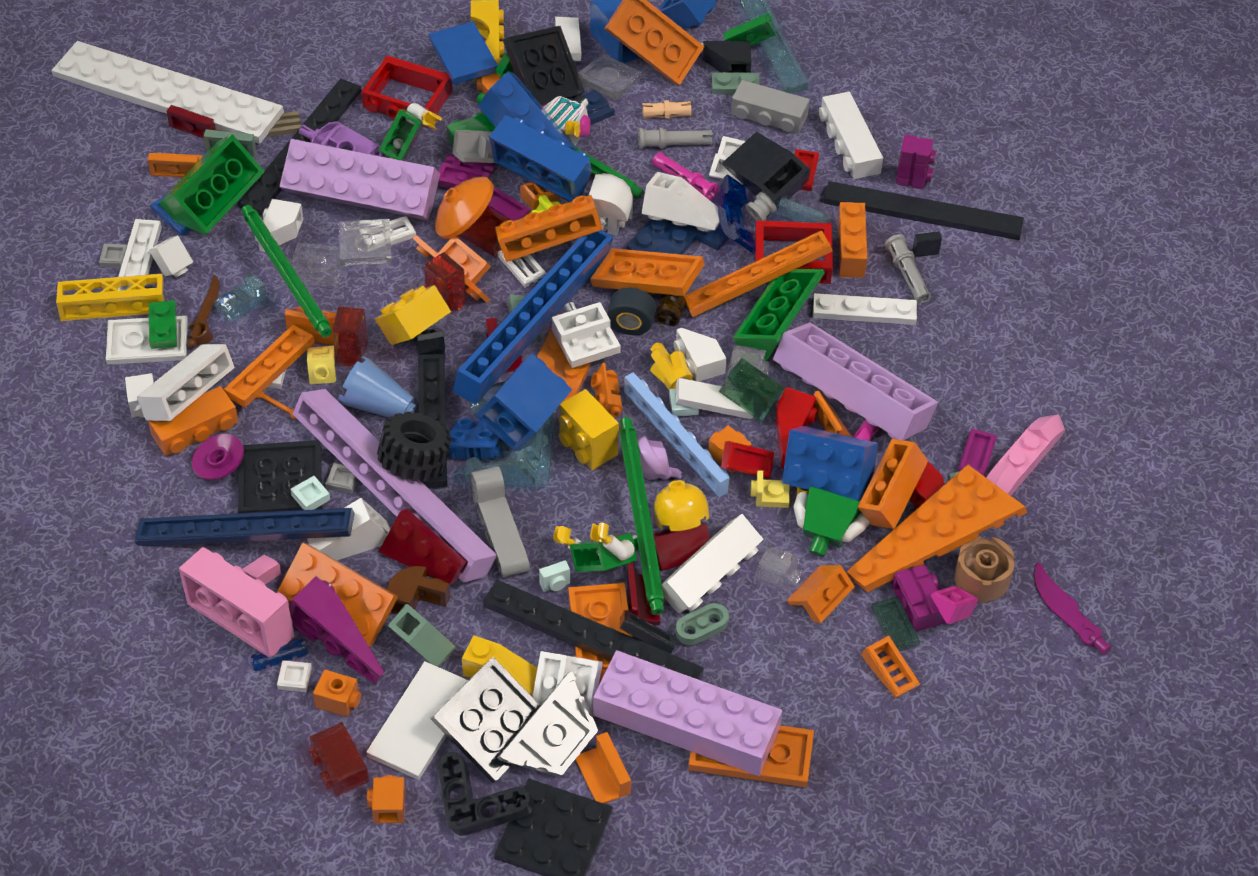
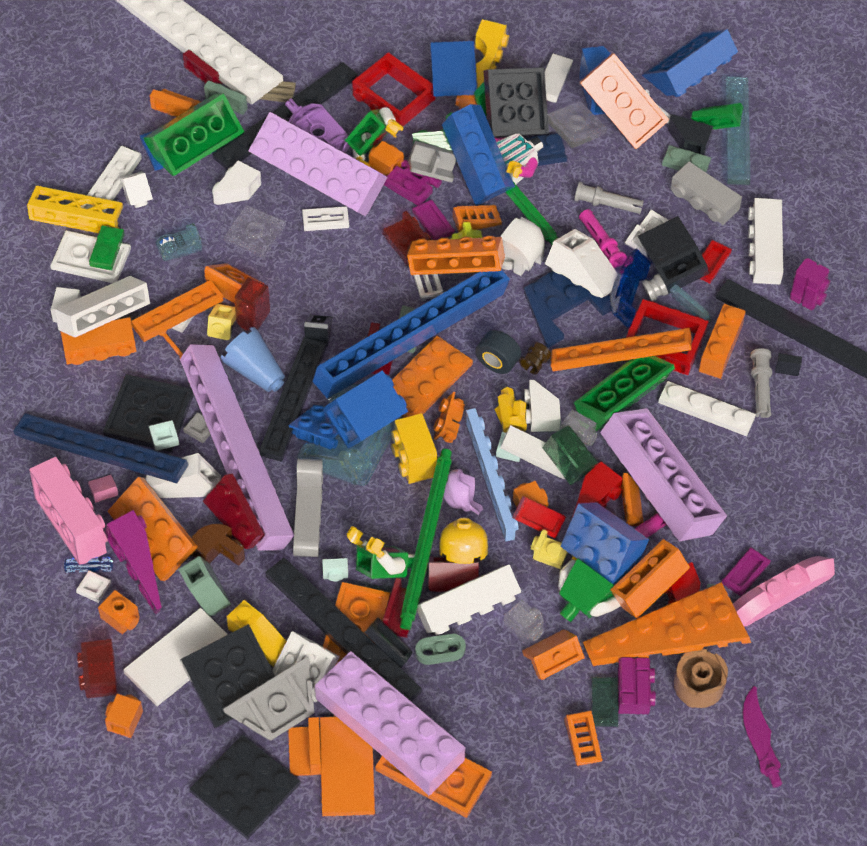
camera: 20 degrees right, 5 degrees up
(112, 255) = (91, 172): light grey tile -> none
(196, 336) = (136, 264): reddish brown sword -> none
(217, 457) = (105, 378): magenta dish -> none
(287, 271) = (227, 287): green piece -> none
(365, 242) = (301, 221): clear tile -> none
(412, 314) = (310, 300): yellow brick -> none
(414, 446) = (261, 420): black tyre -> none
(428, 154) = (385, 158): none -> orange brick
(448, 279) = (350, 280): clear red brick -> none
(463, 206) = (393, 213): orange dish -> none
(467, 805) = (188, 744): black beam -> none
(473, 264) = (373, 262): orange bracket -> none
(540, 158) = (474, 189): blue slope -> none
(584, 334) = (448, 361): white plate -> none
(648, 271) = (527, 319): orange plate -> none
(658, 781) = (345, 770): none -> orange tile
(666, 109) = (613, 170): light nougat pin -> none
(954, 603) = (658, 701): dark pink slope -> none

